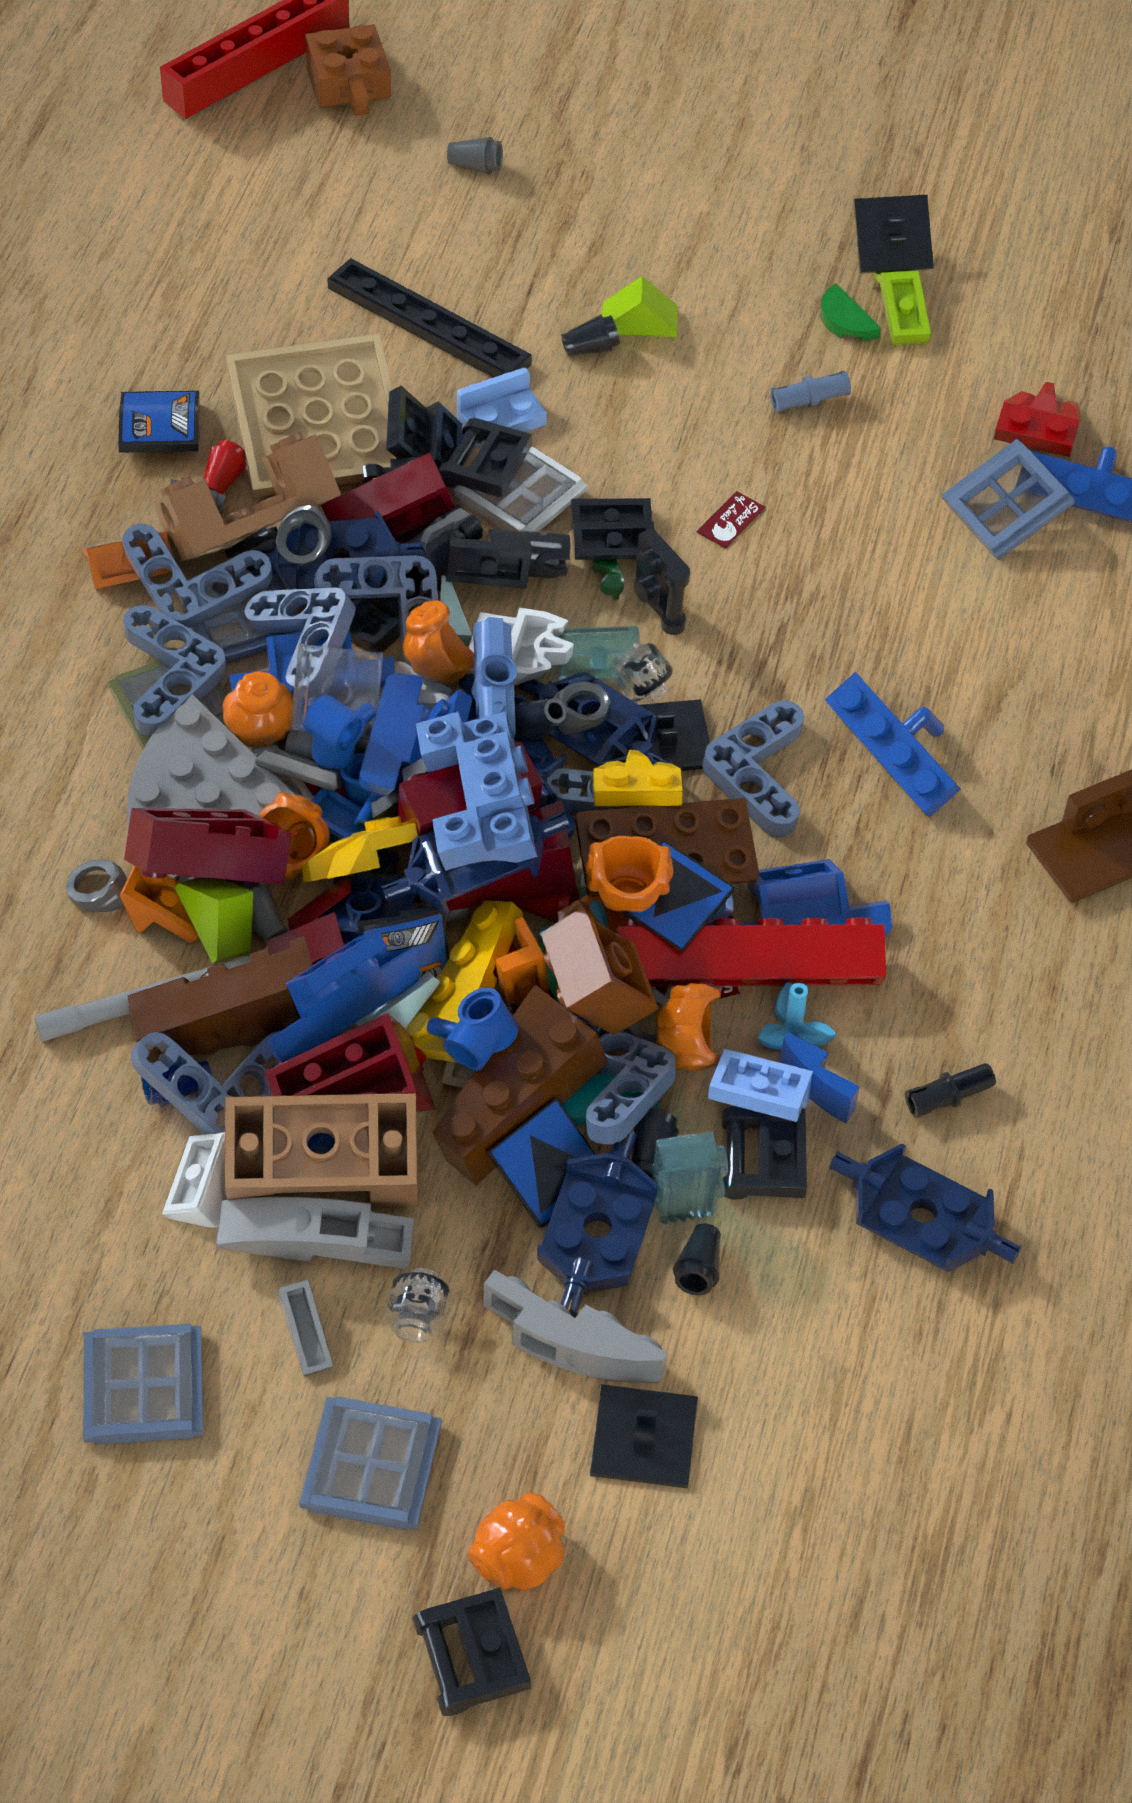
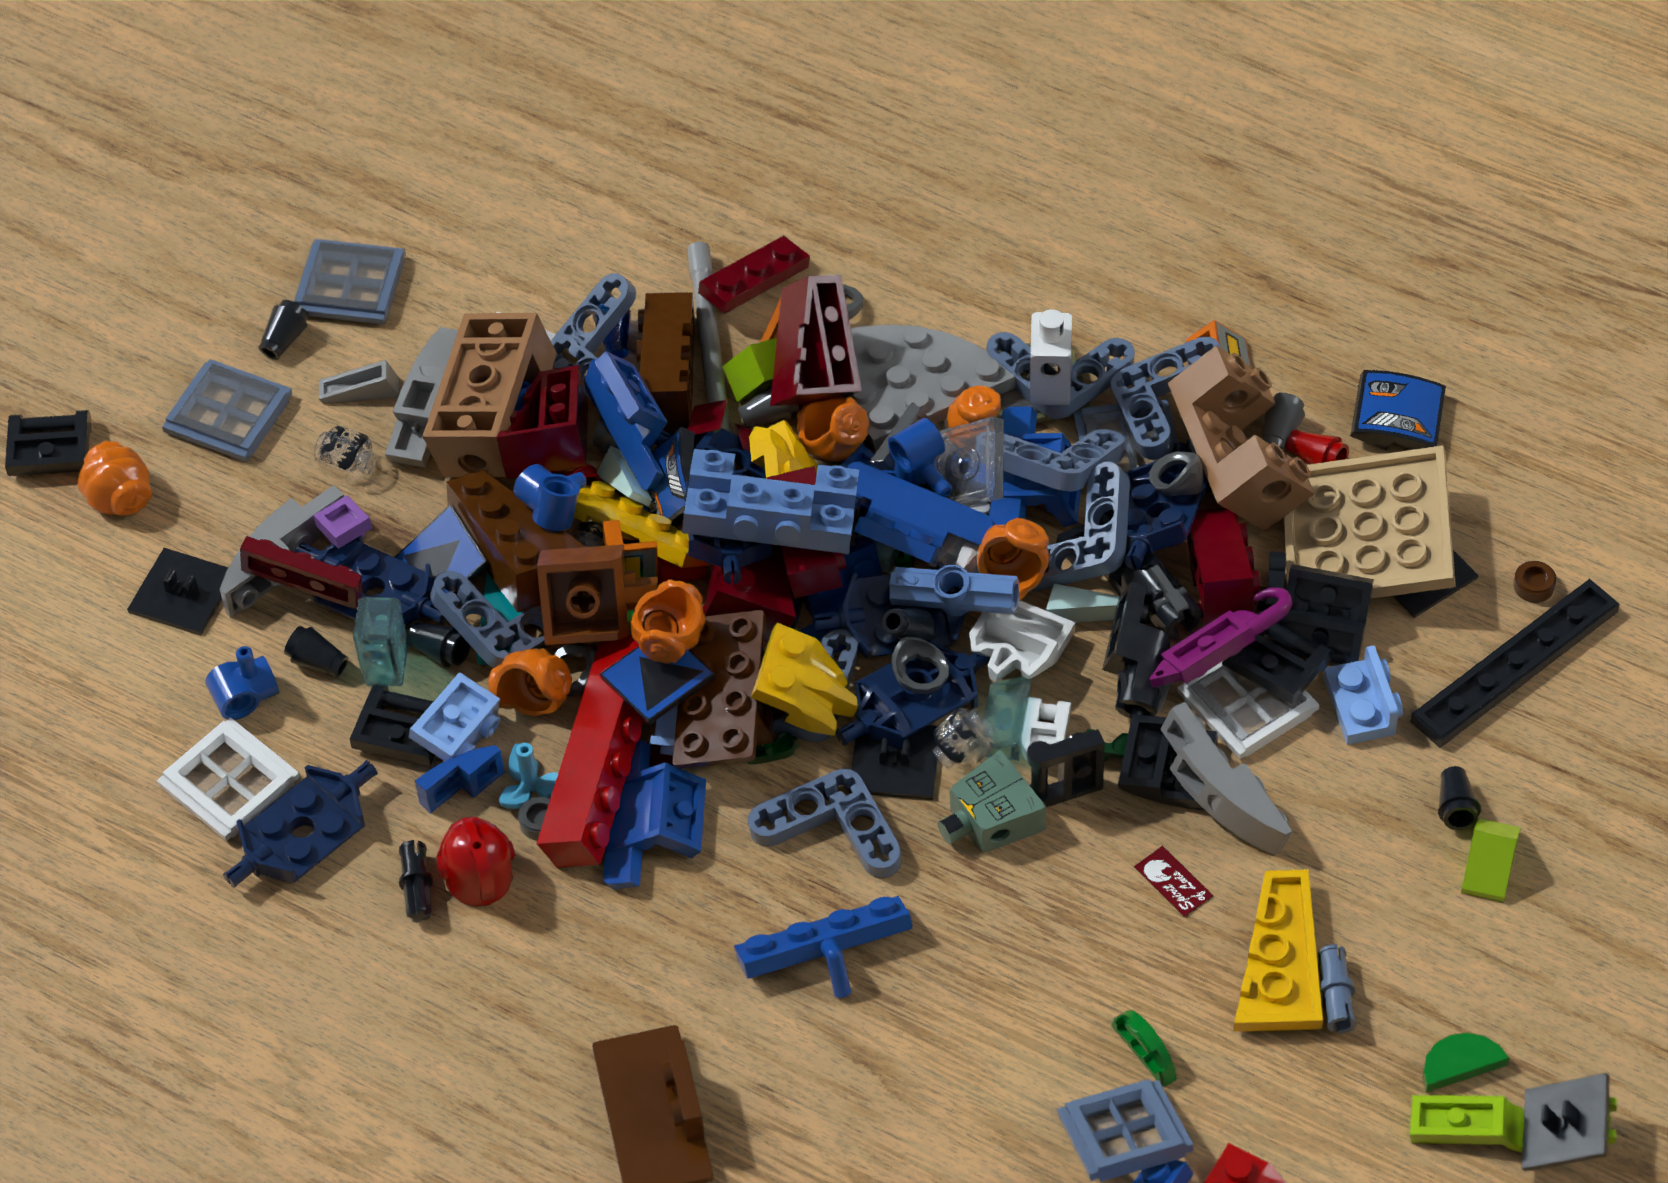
camera: 110 degrees right, 0 degrees up
(75, 960) = (754, 274): none -> dark red plate
(181, 643) = (1050, 343): none -> white torso
(240, 1429) = (283, 328): none -> black cone
(335, 317) = (1534, 581): none -> reddish brown tile
(495, 479) = (1219, 640): none -> magenta plate
(535, 1258) = (342, 522): none -> medium lavender tile
(610, 612) = (1042, 731): none -> white plate
(624, 1269) = (301, 572): none -> dark red plate
(637, 482) = (1227, 794): none -> light grey slope
(707, 642) = (993, 806): none -> sand green torso
(769, 1317) = (241, 684): none -> blue piece
(793, 428) = (1282, 965): none -> yellow wing
(833, 1005) = (532, 816): none -> dark grey tile
(883, 1304) = (228, 778): none -> white piece
(910, 507) = (1145, 1045): none -> green tile
(917, 1029) = (475, 861): none -> red helmet

